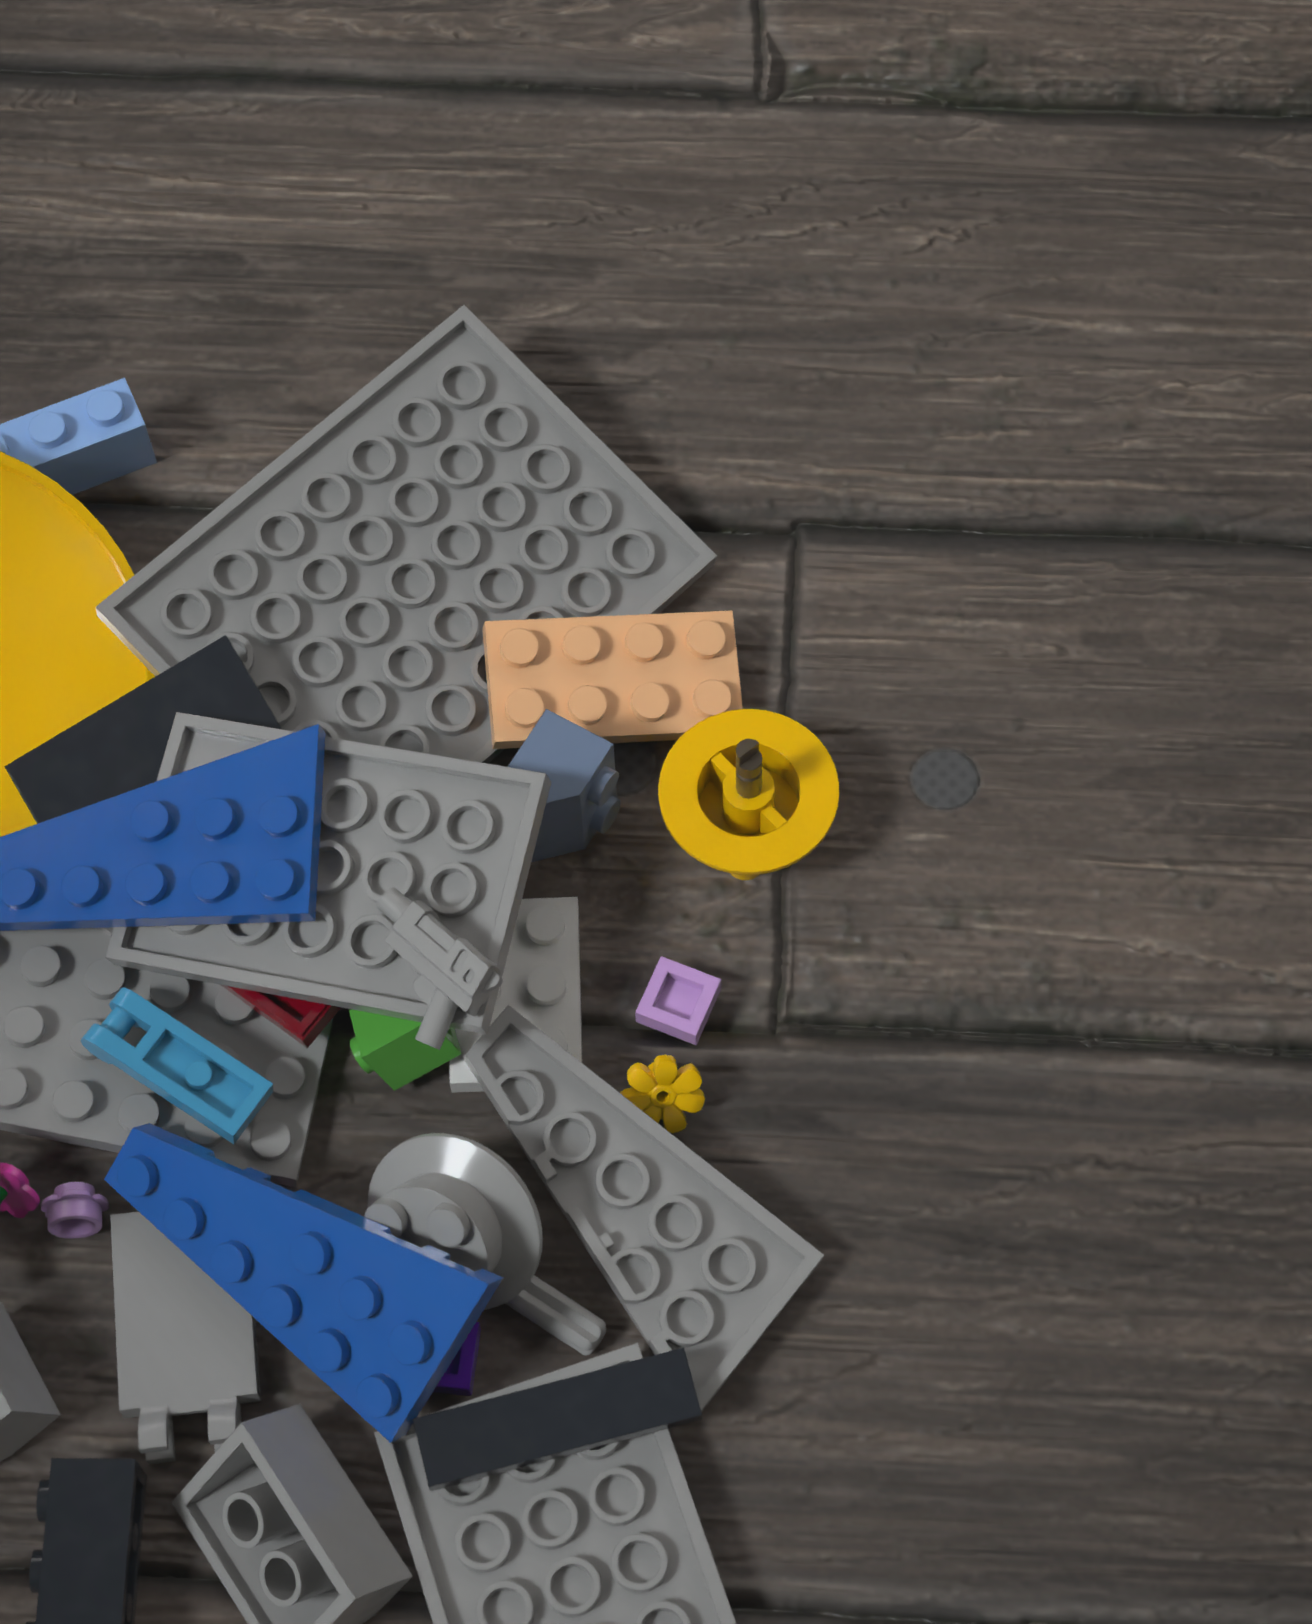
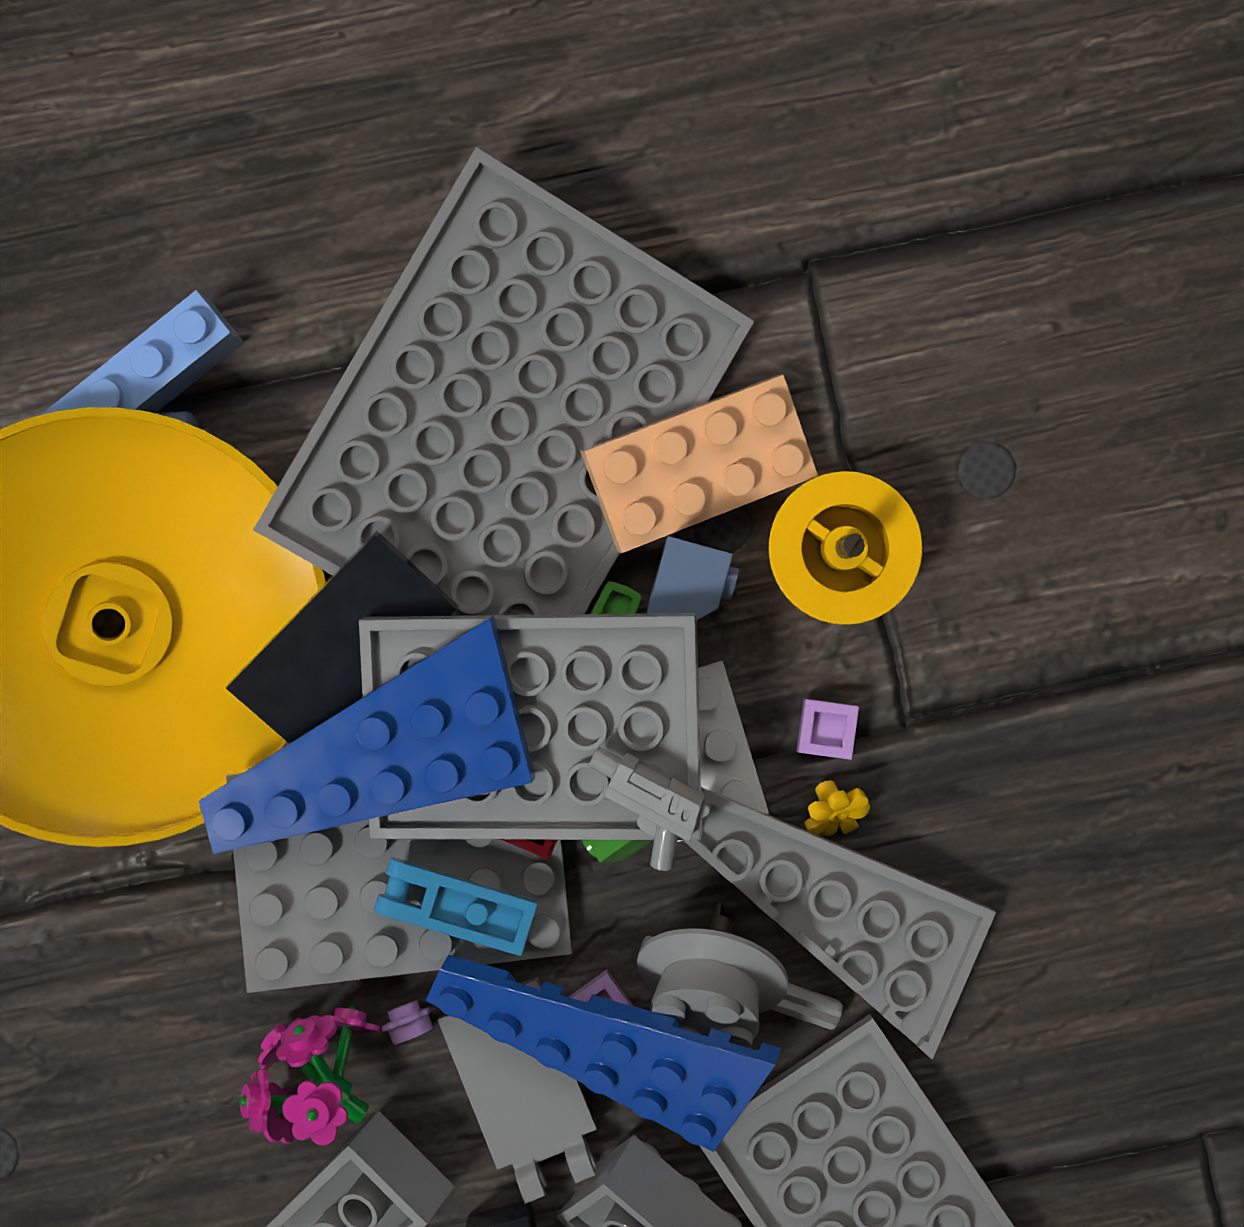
camera: 20 degrees left, 25 degrees up
(557, 1419) = (832, 1099): black tile -> none

